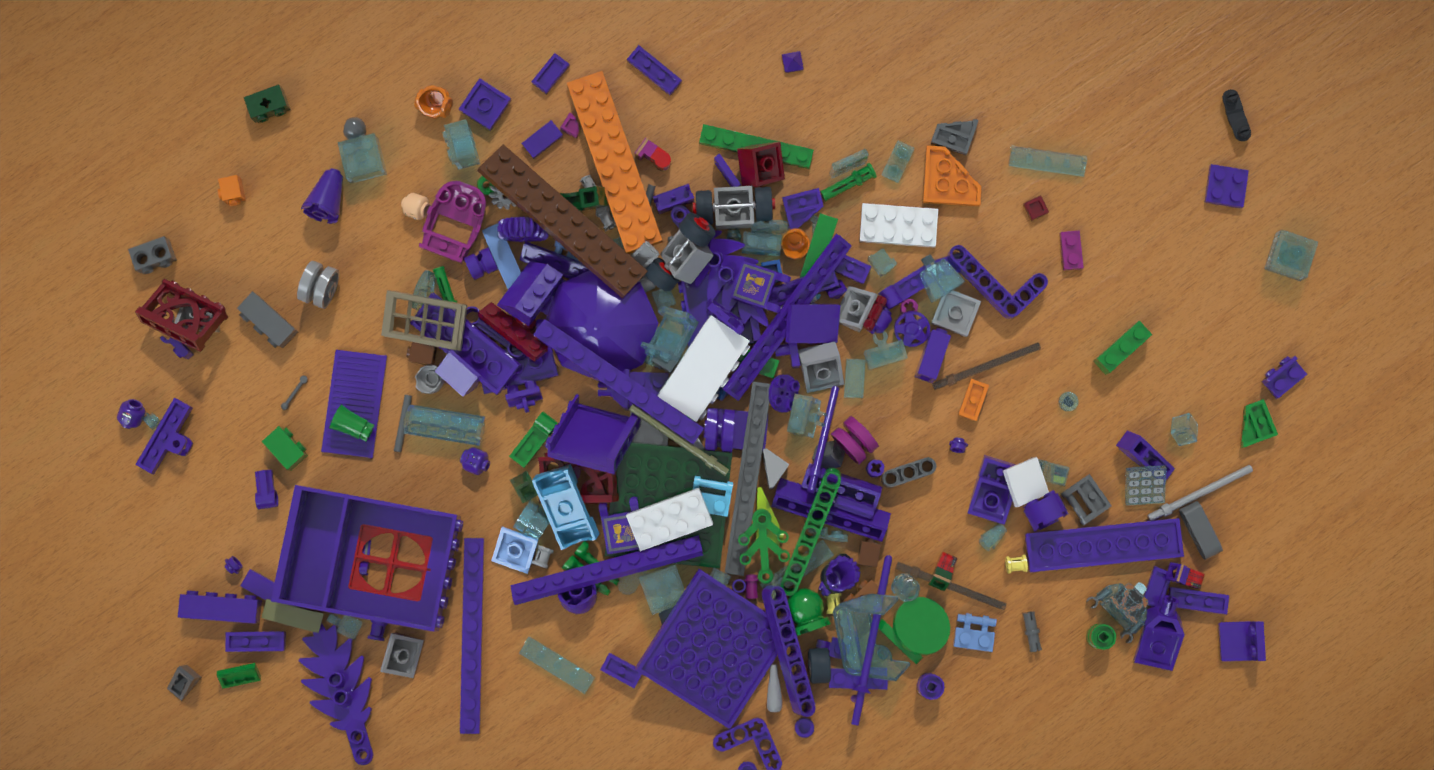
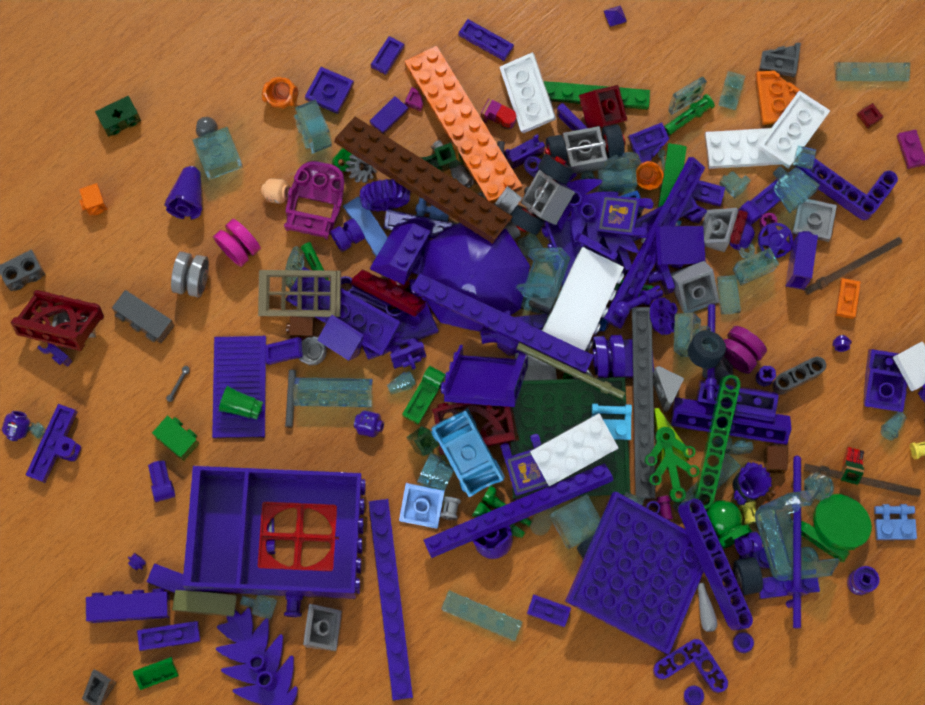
camera: 10 degrees left, 10 degrees down
(369, 257) = (236, 242): none -> dark pink wheel
(401, 375) = (283, 351): none -> dark purple tile
(514, 424) = (402, 383): none -> clear light blue cone
(686, 136) = (527, 93): none -> white plate
(742, 382) = (623, 308): none -> dark purple pin
(821, 432) = (706, 349): none -> black wheel
(824, 635) = (748, 543): none -> dark purple wheel
(952, 215) = (793, 128): none -> white plate
(955, 249) = (804, 157): none -> clear light blue plate

